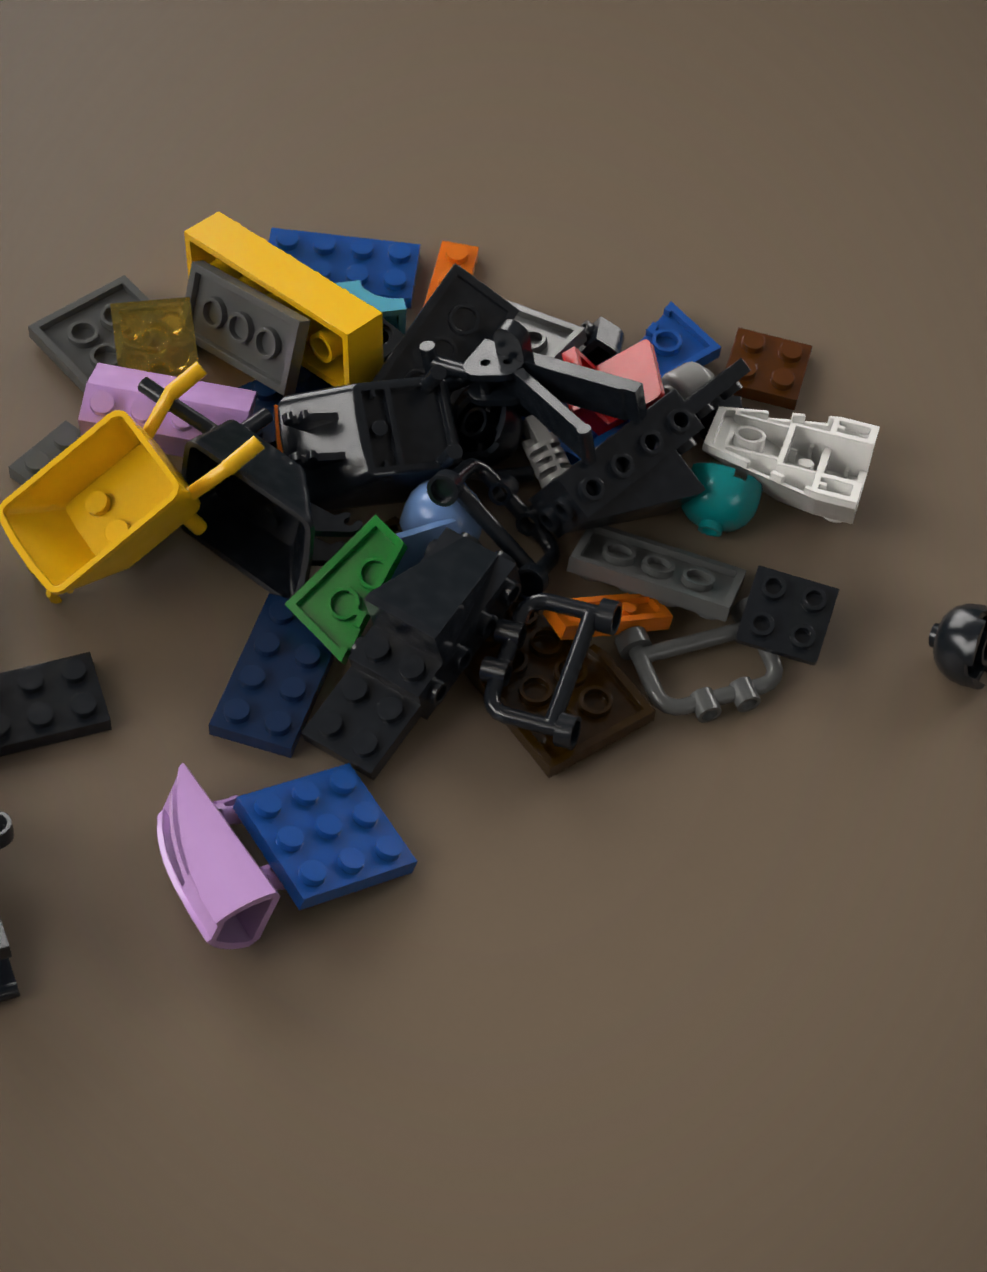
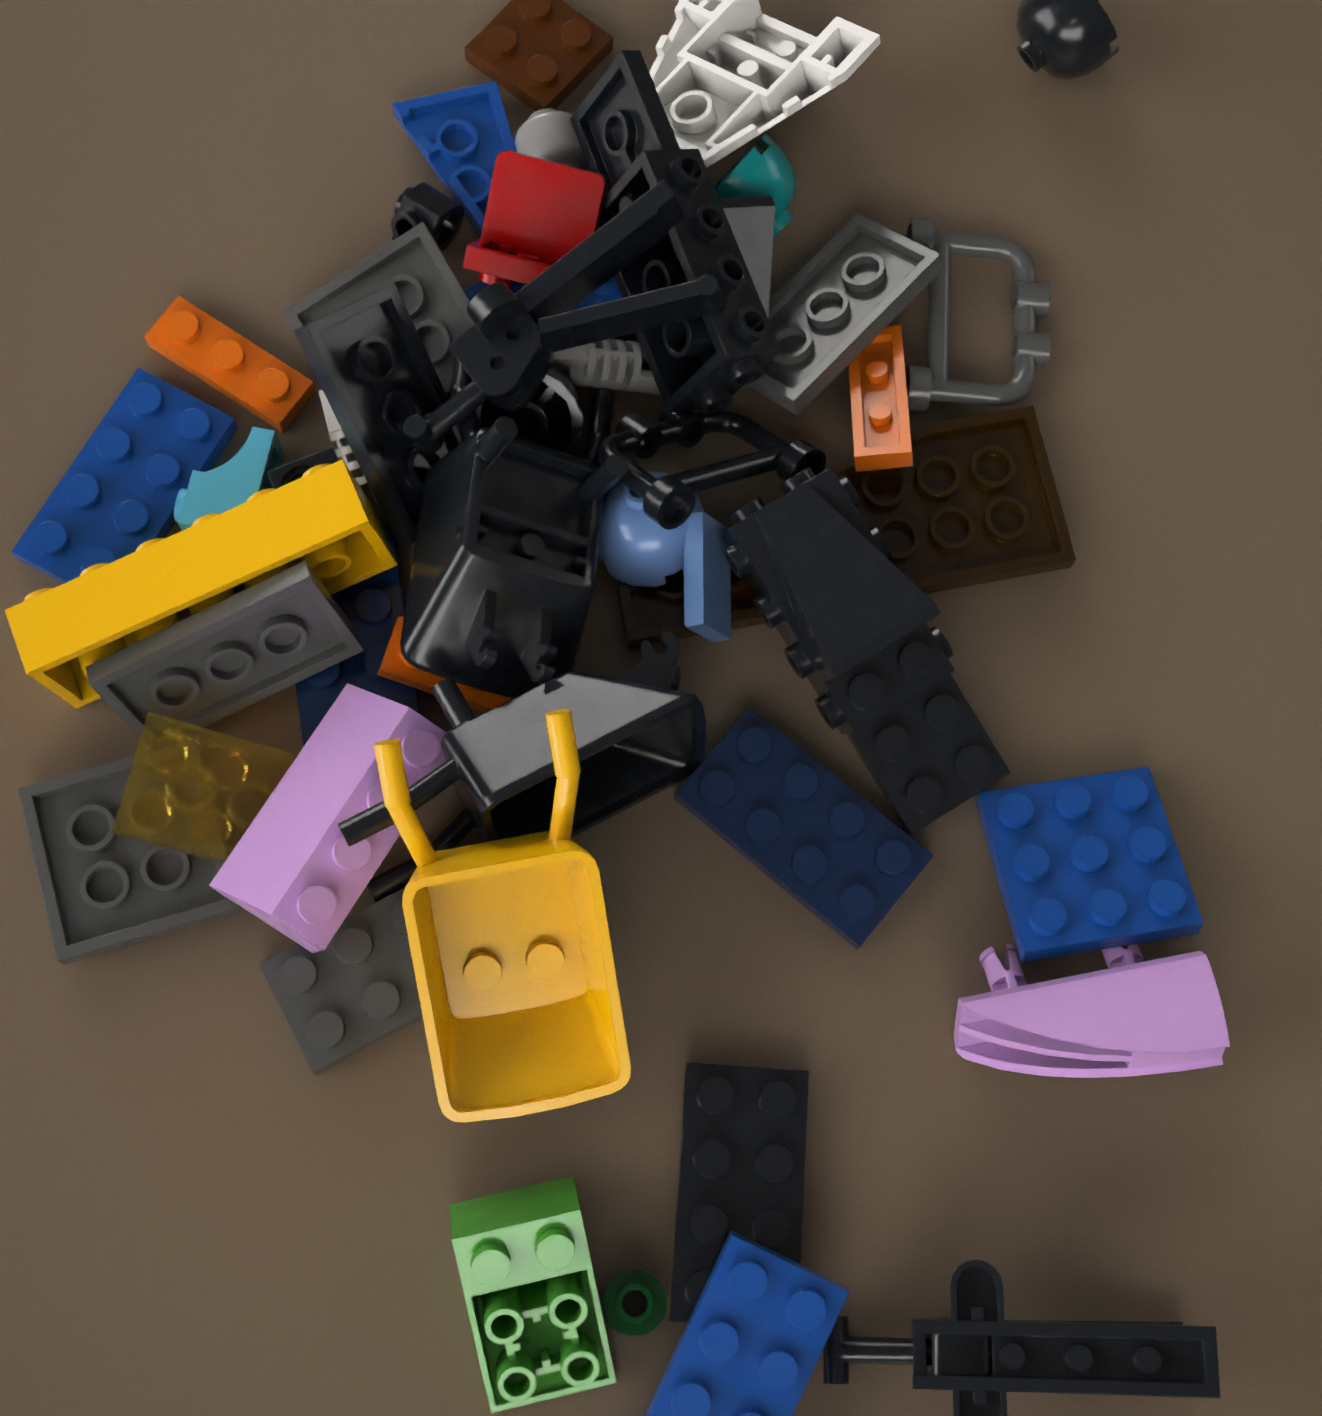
camera: 70 degrees left, 20 degrees up
(333, 598) = (749, 690): green wing -> none
(511, 635) = (926, 559): black bar -> none
(787, 615) = (956, 199): black bracket -> none

